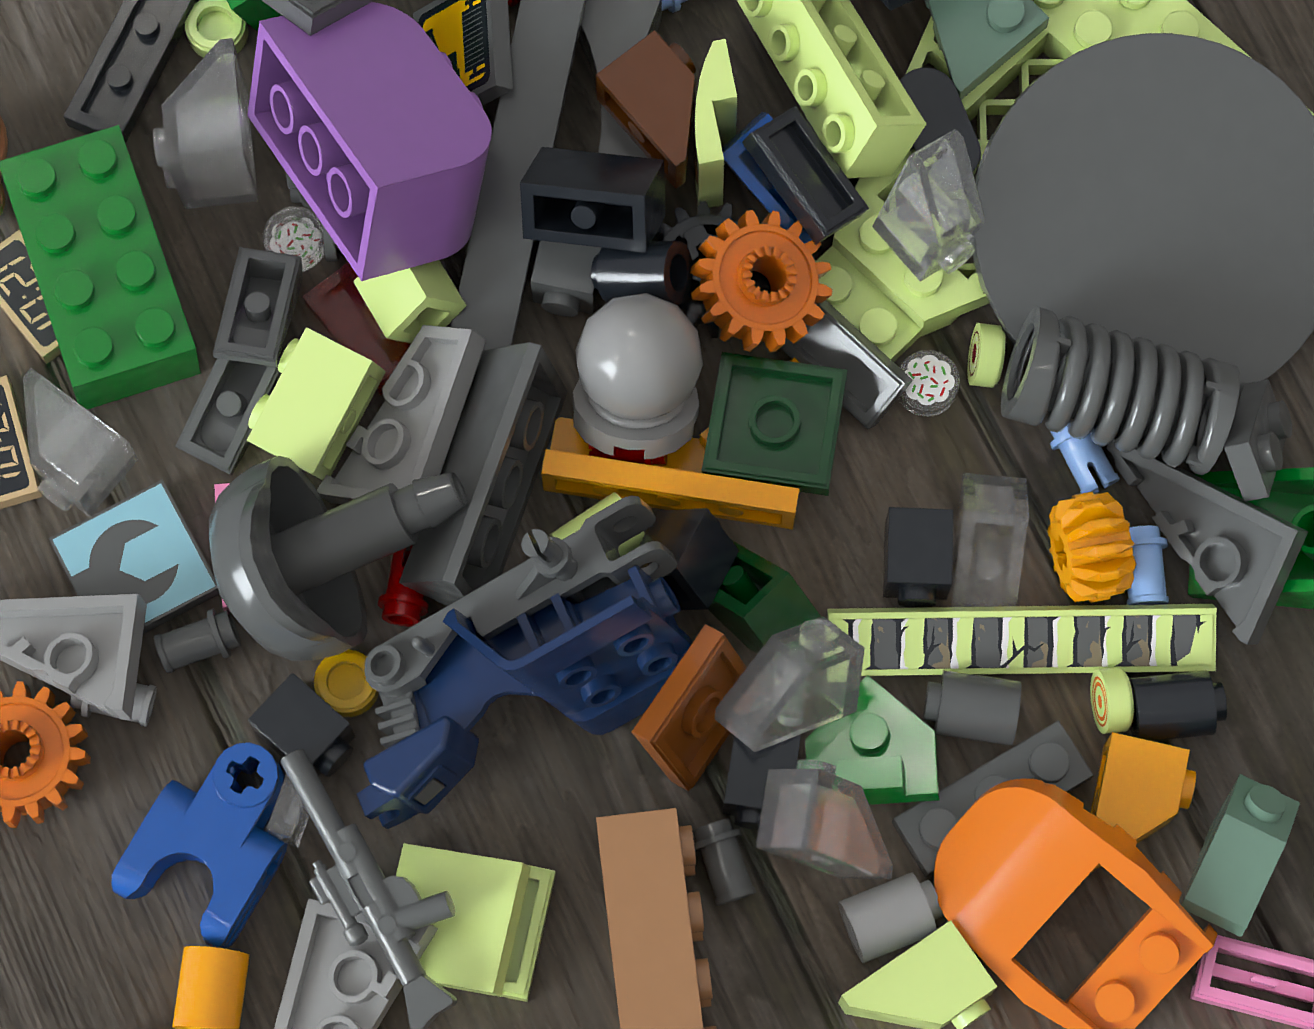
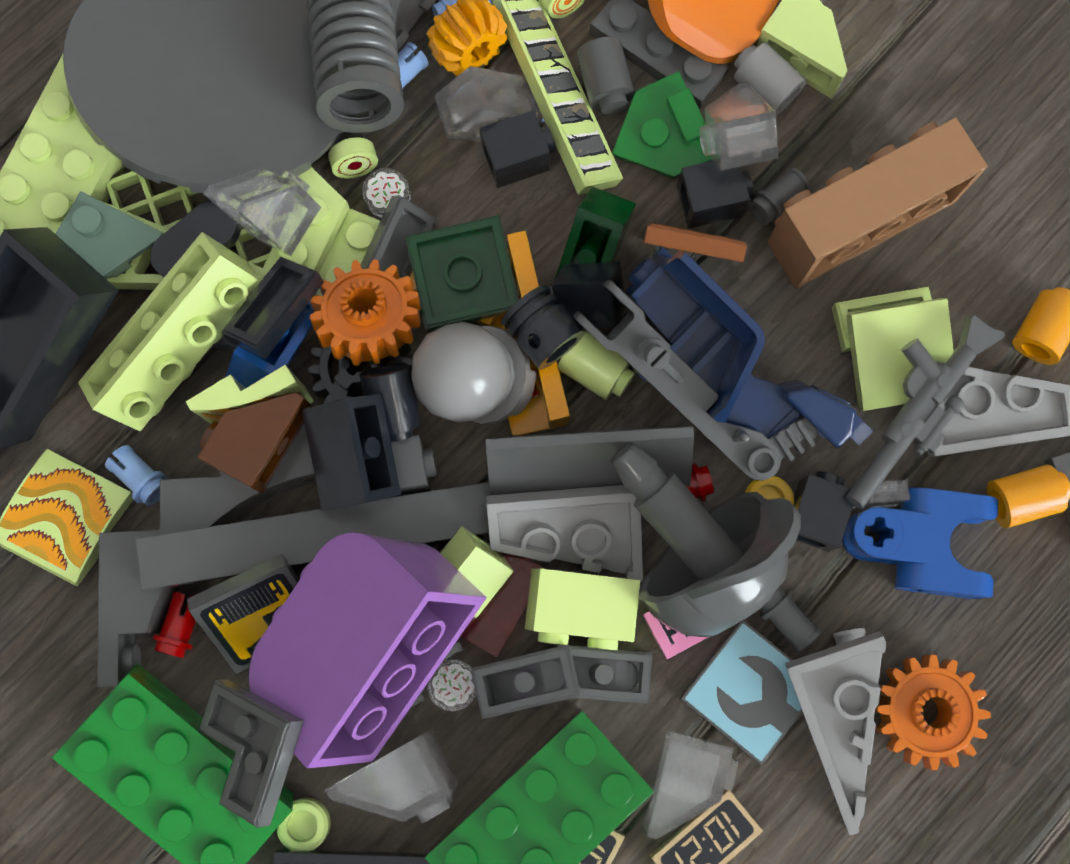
camera: 110 degrees left, 5 degrees up
(655, 467) = (542, 326): none -> black piece
(794, 685) = (651, 184): clear slope -> none

